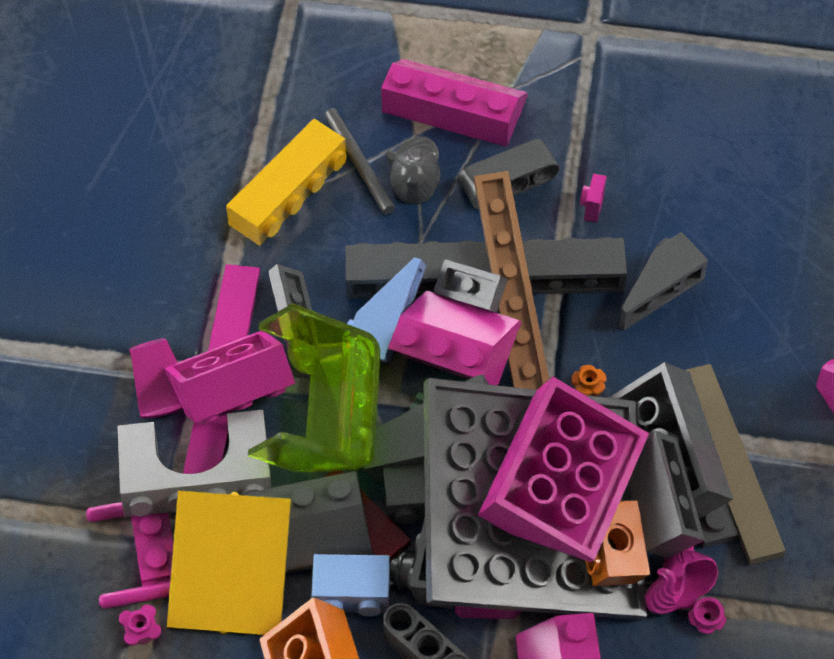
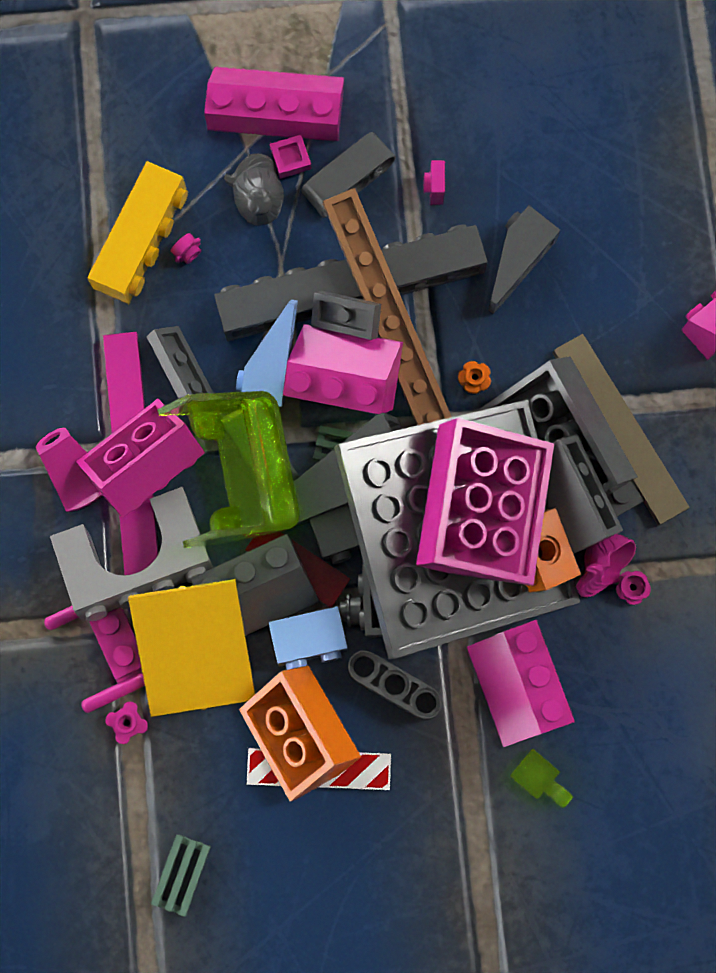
camera: 15 degrees left, 20 degrees up
(330, 206) = (186, 248): none -> dark pink plate
(360, 162) = (201, 191): dark grey bar -> none
(455, 147) = (290, 156): none -> dark pink plate

